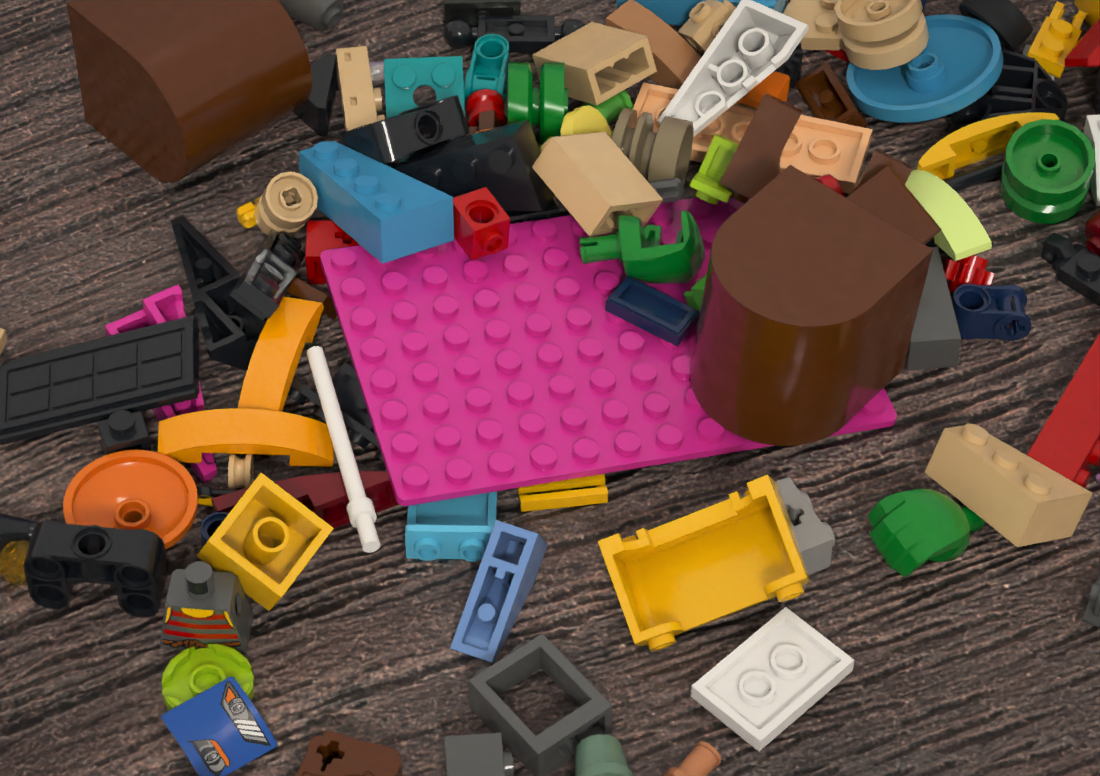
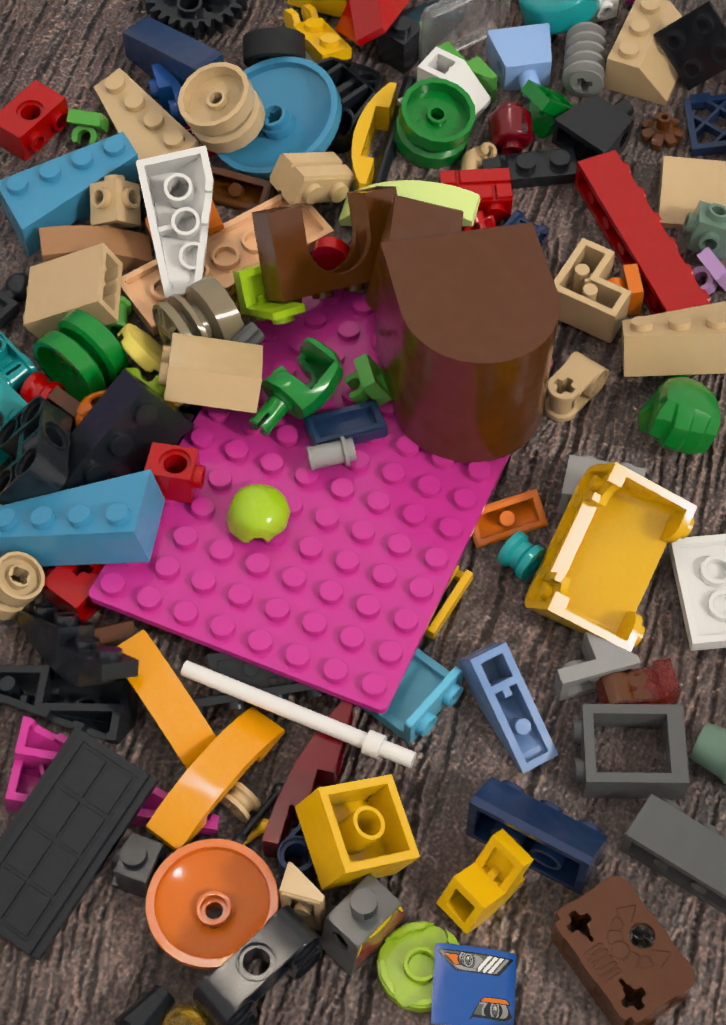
camera: 50 degrees left, 10 degrees up
(180, 539) = (303, 897): none -> tan slope
(310, 676) = (486, 883): none -> yellow brick
(393, 676) = (558, 844): none -> dark blue slope
(500, 301) = (257, 513): none -> lime hair
(598, 638) = (601, 659): none -> light grey slope
(612, 676) = (641, 686): none -> leg
(619, 319) = (331, 453): none -> light grey pin
(657, 507) = (521, 555): none -> teal wheel
(690, 484) = (509, 515): none -> orange slope
(880, 442) = (573, 387): none -> tan piece
(882, 123) = (311, 177): none -> tan brick
(988, 382) = (587, 296): none -> tan brick
(1017, 253) = (491, 185): none -> red brick
(1027, 419) = (631, 281): none -> orange tile
(1037, 234) = (473, 158): none -> tan arm

